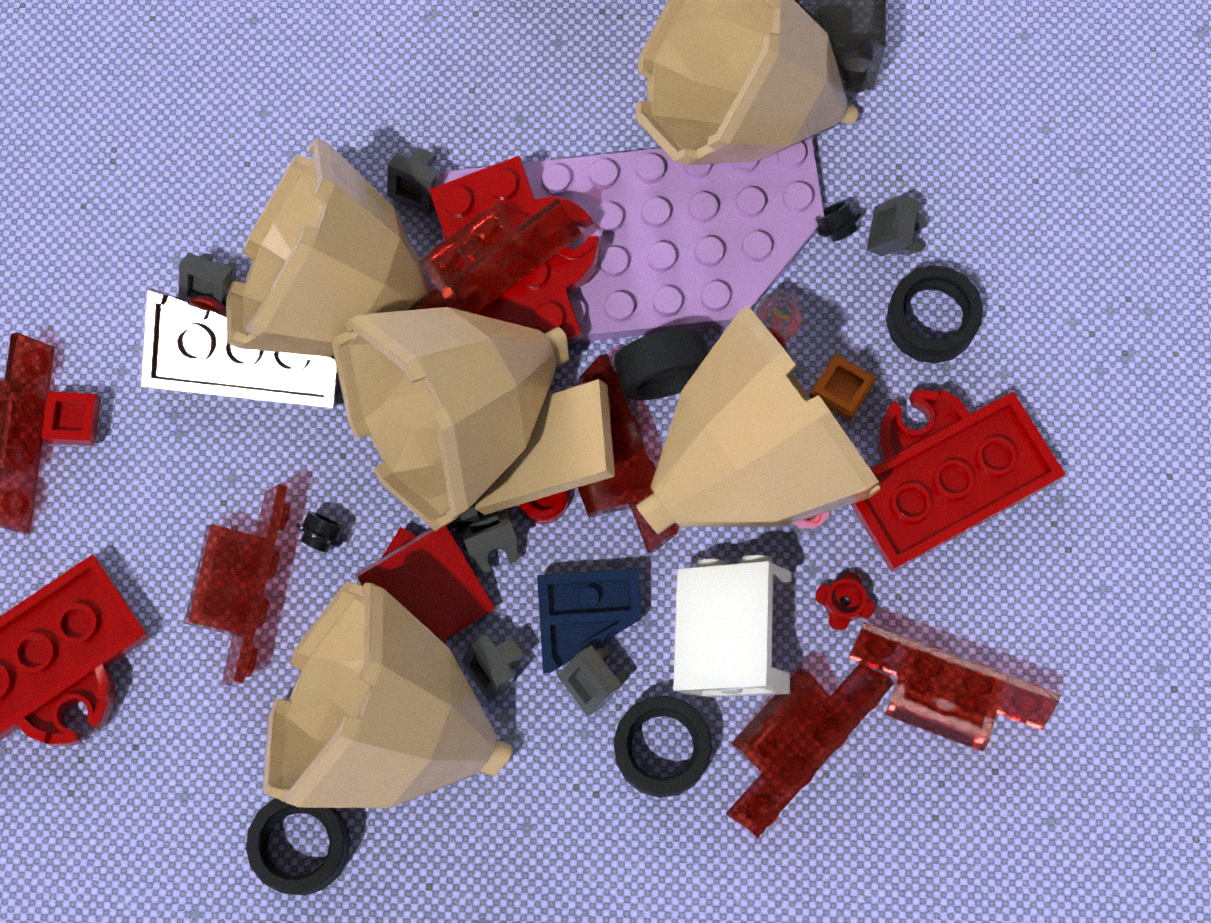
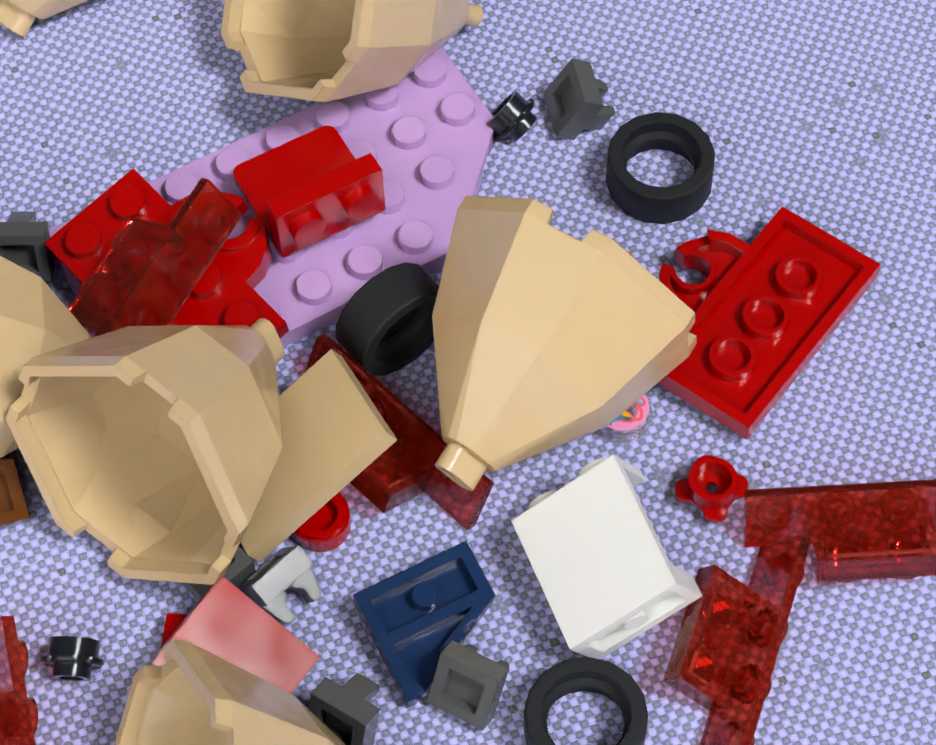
camera: 25 degrees left, 15 degrees down
(647, 225) = (310, 189): none -> red bracket

